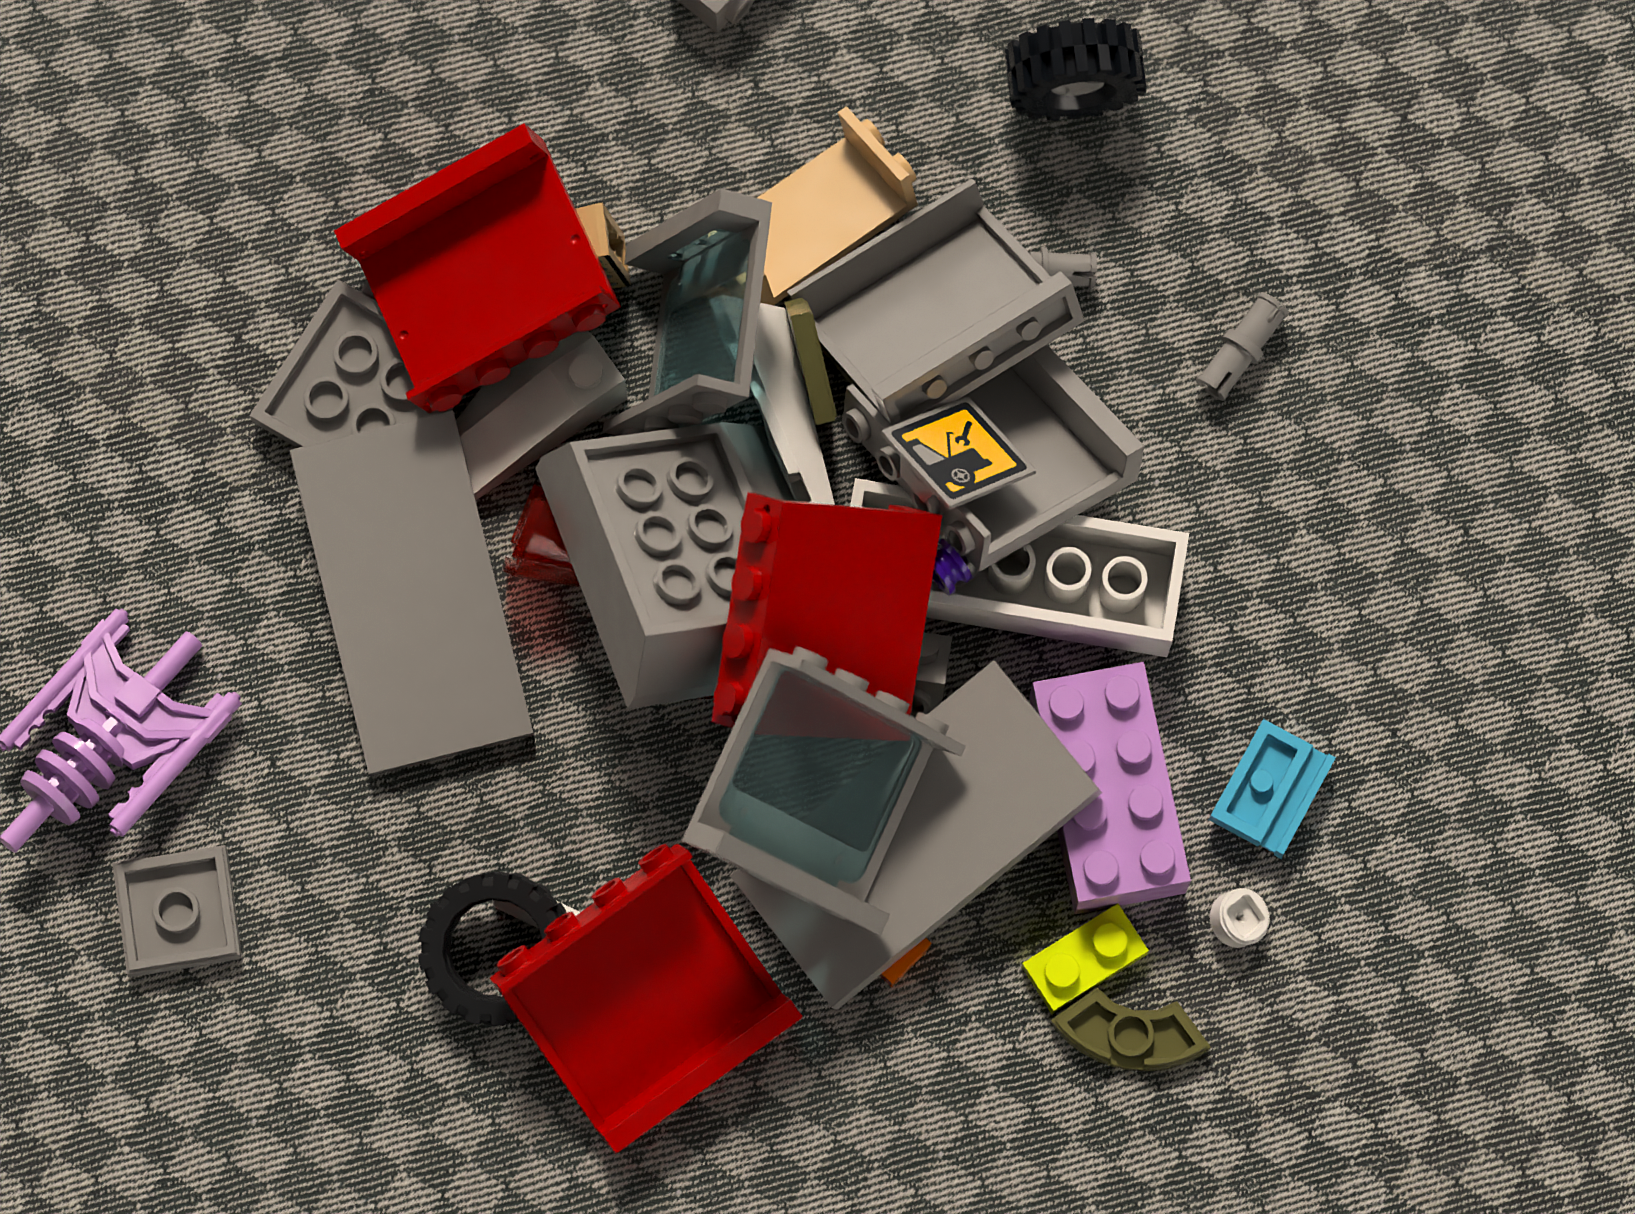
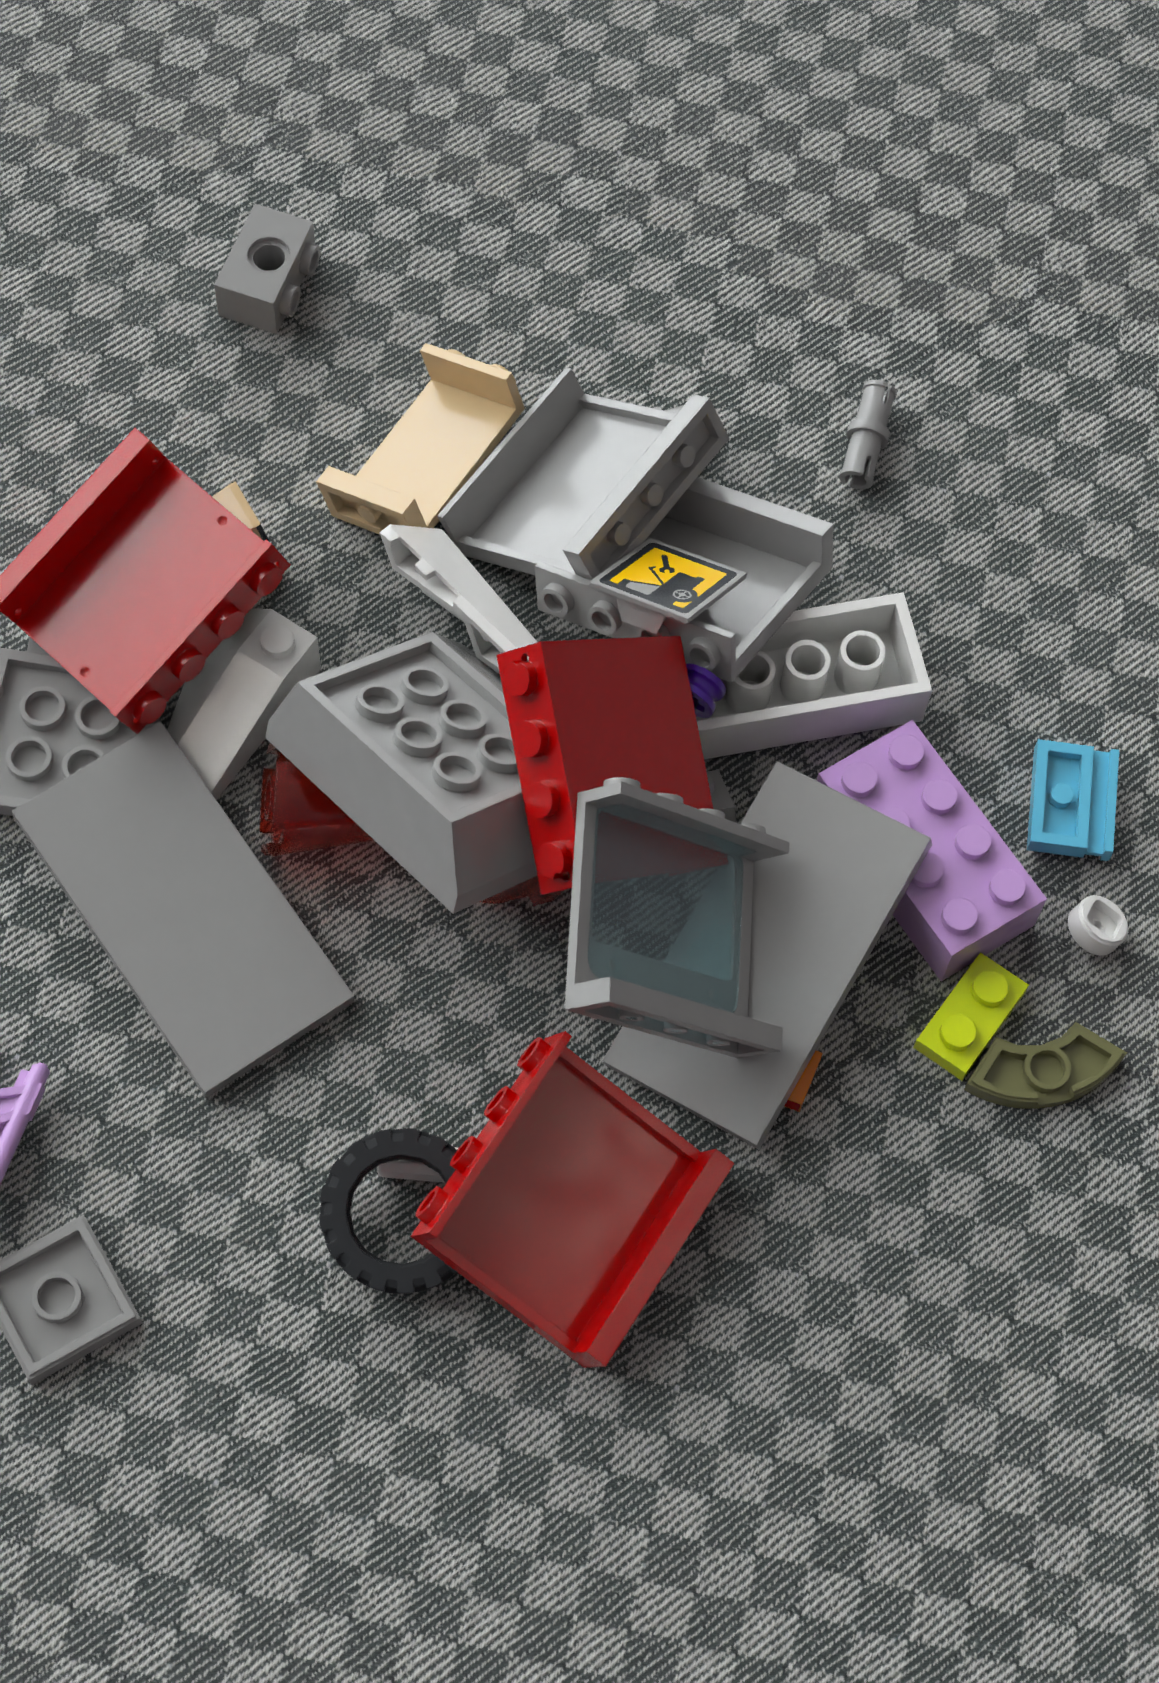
camera: 25 degrees left, 10 degrees down
(706, 312) = (370, 531): panel -> none
(811, 360) = (487, 552): olive tile -> none
(1075, 69) = (621, 245): black wheel -> none

